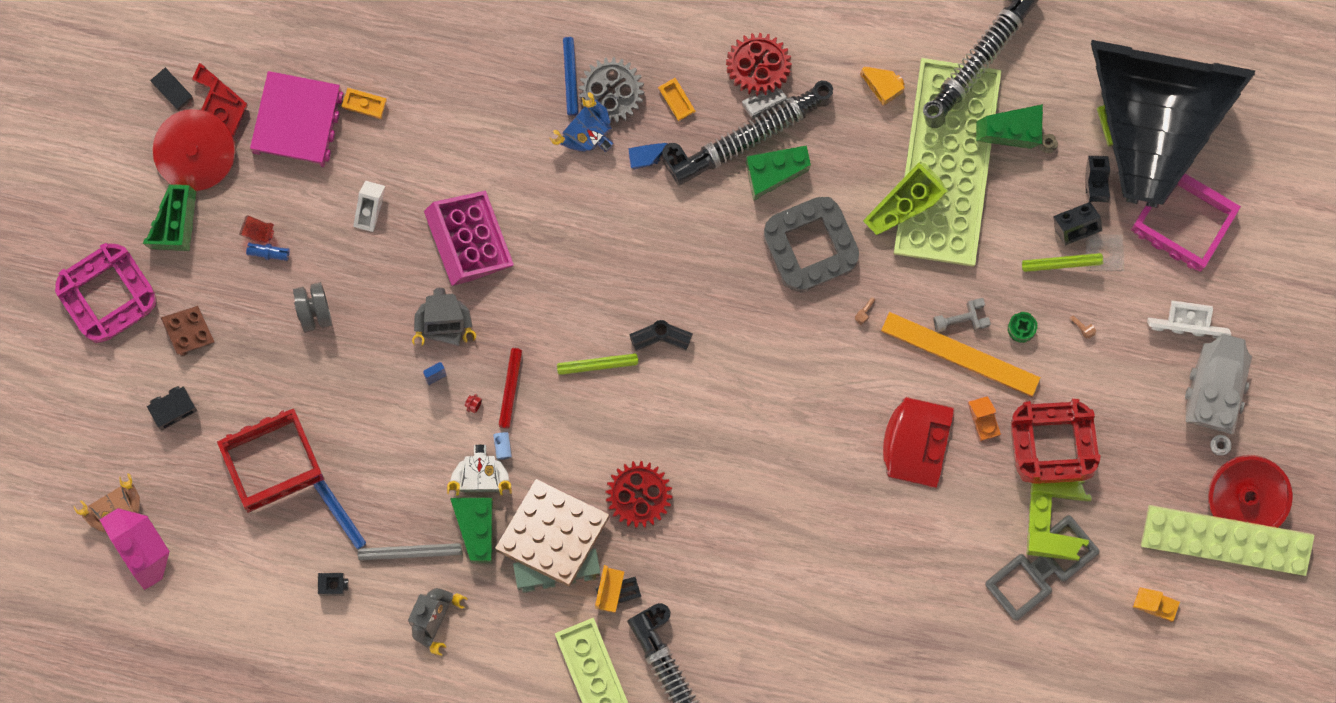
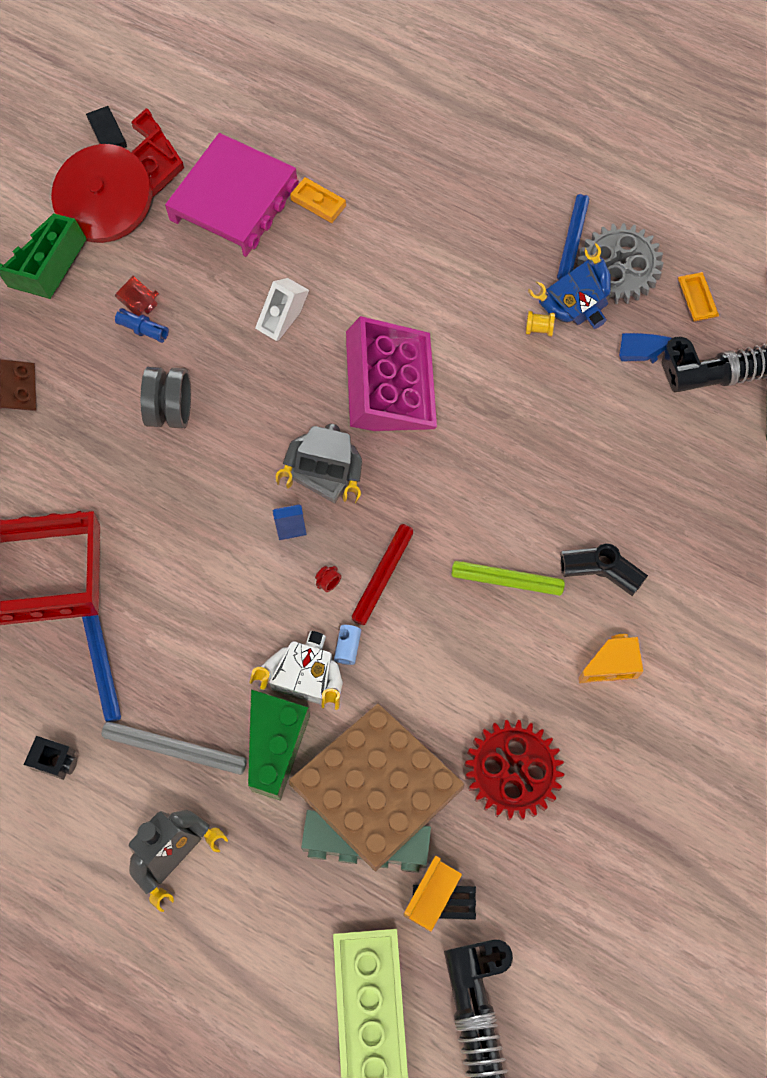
camera: 25 degrees right, 10 degrees down
(565, 159) = (540, 323): none -> yellow bush
(685, 400) = (615, 661): none -> light orange slope

